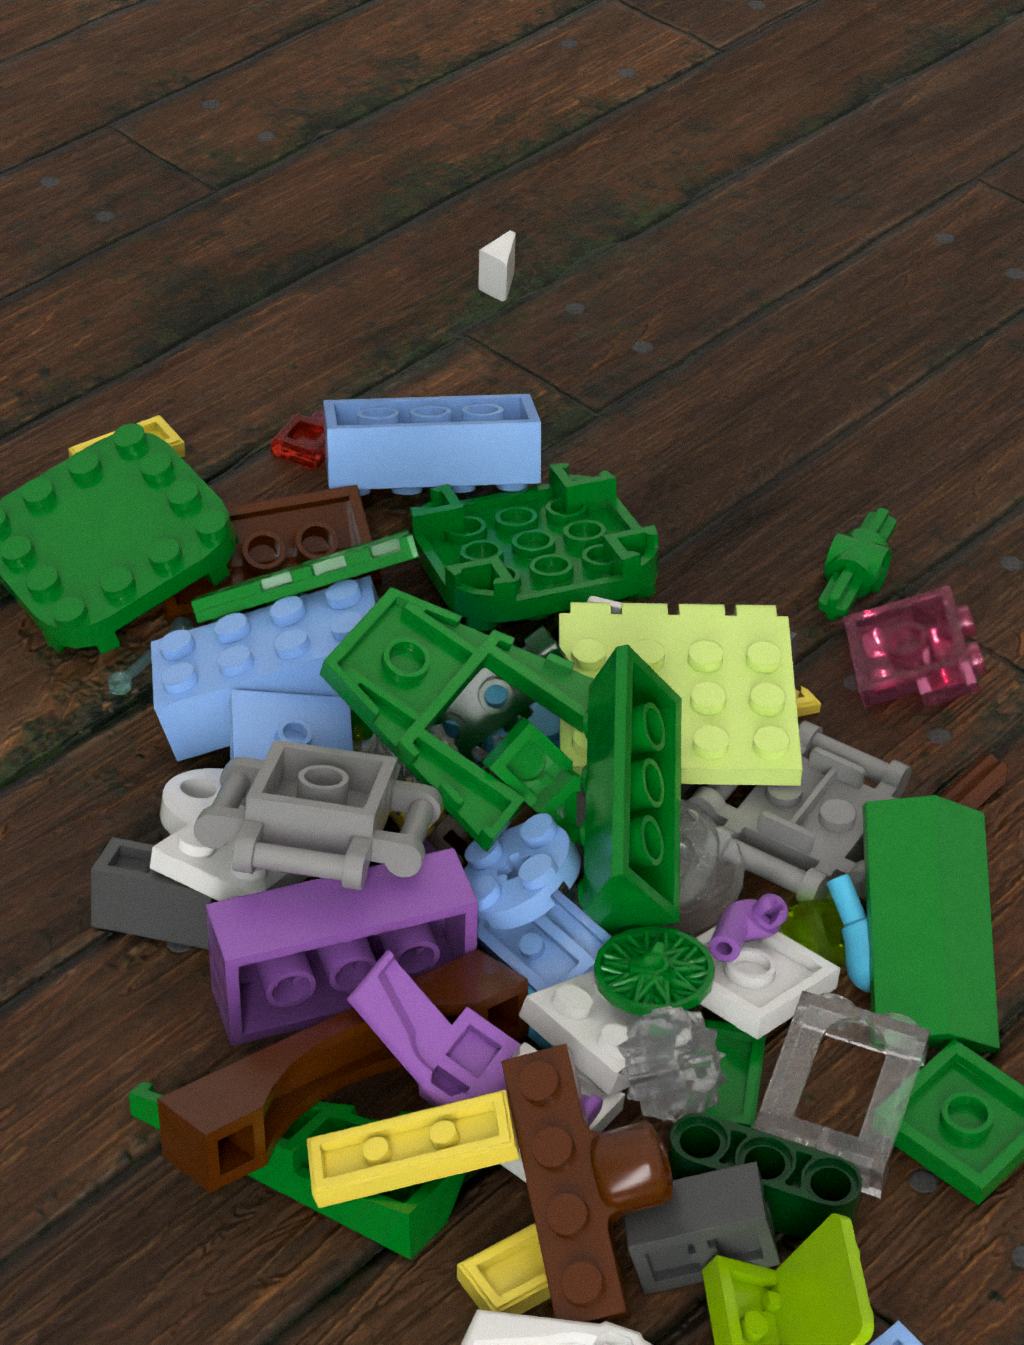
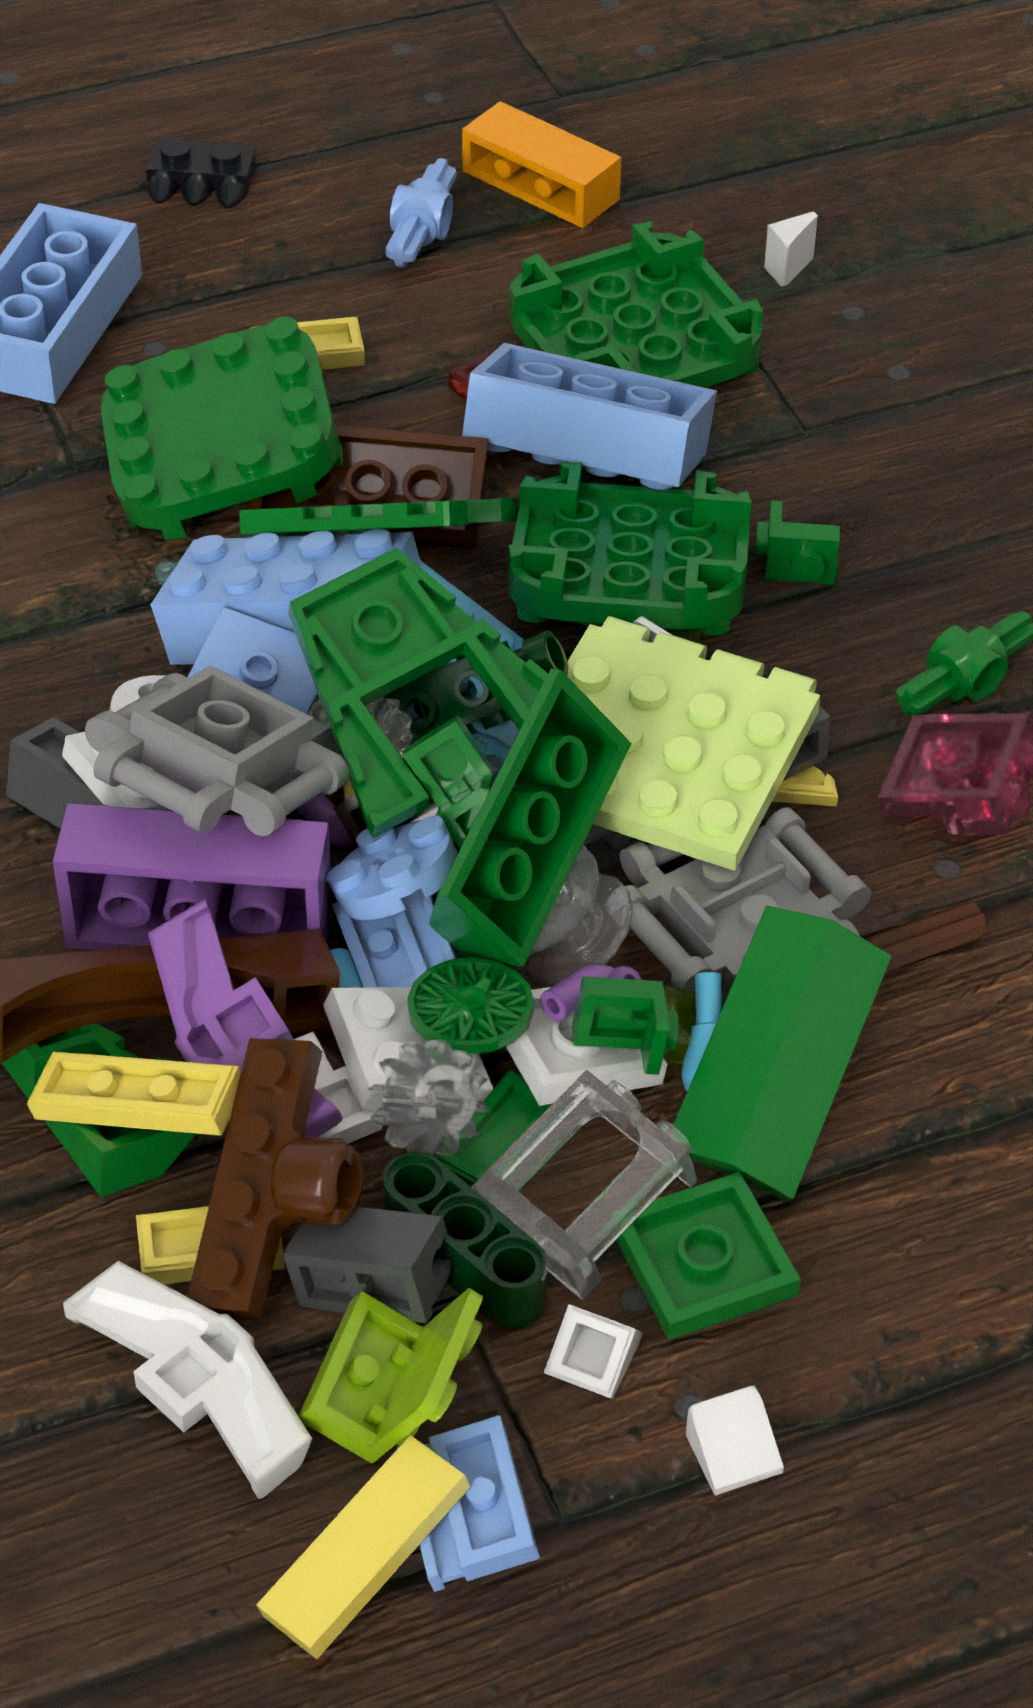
camera: 25 degrees right, 5 degrees up
(163, 313) = (421, 212): none -> light blue axle
(244, 247) = (541, 164): none -> light orange brick
(405, 344) = (640, 310): none -> green plate
(671, 507) = (797, 549): none -> green bracket
(798, 935) = (625, 1016): none -> green bracket
(923, 1238) = (592, 1351): none -> white slope

